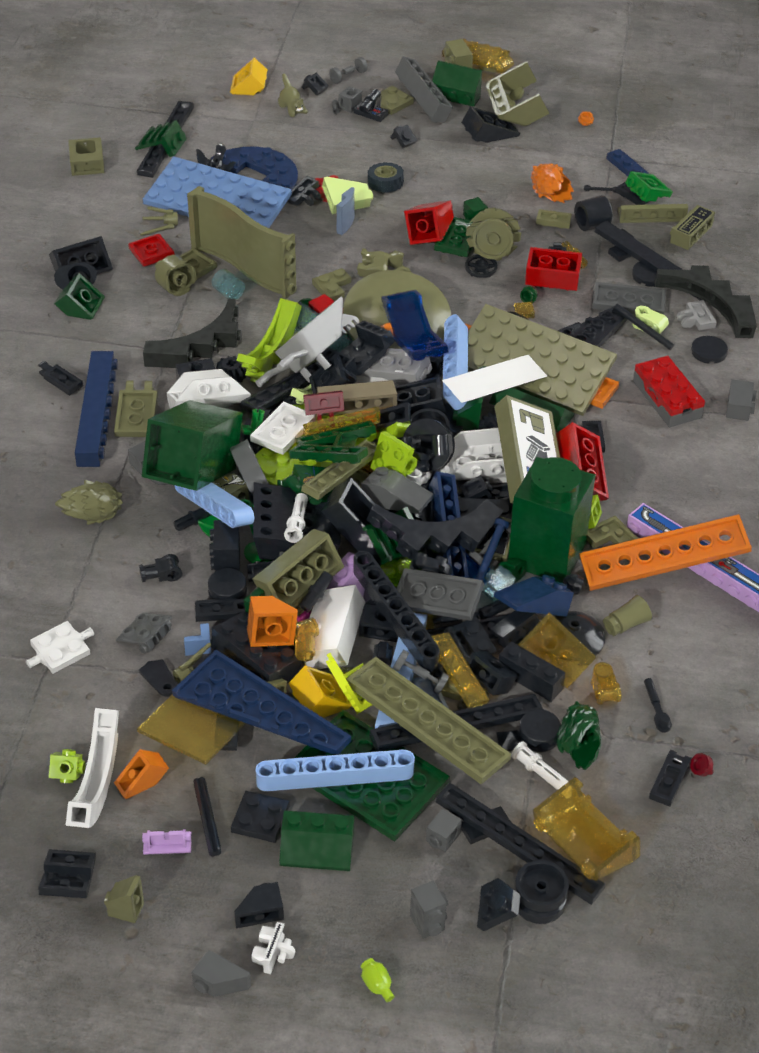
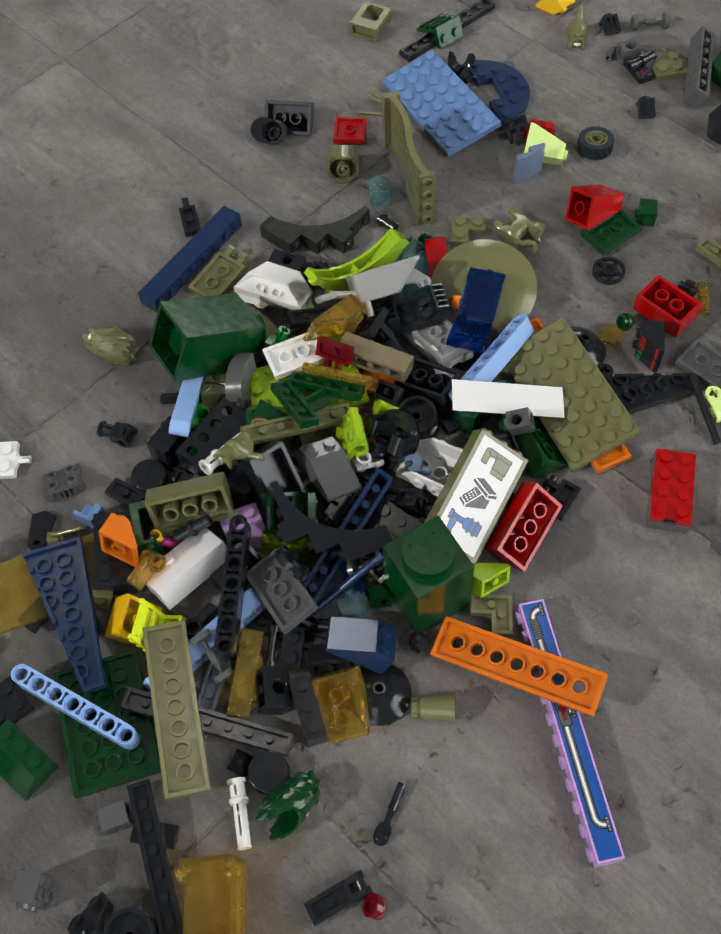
camera: 40 degrees right, 15 degrees up
(79, 299) = (260, 152): dark green slope -> none
(199, 261) = (373, 159): olive tile -> none
(260, 307) = (384, 221): none -> black pin
(306, 378) = (337, 320): none -> clear yellow slope
(320, 497) = (237, 449): none -> olive animal
(458, 458) = (414, 463): none -> sand blue piece
(493, 233) = (638, 243): olive plant -> none
(523, 382) = (527, 424): none -> dark grey brick
(566, 299) = (649, 343): none -> black slope
(605, 683) = (358, 766): clear yellow piece -> none

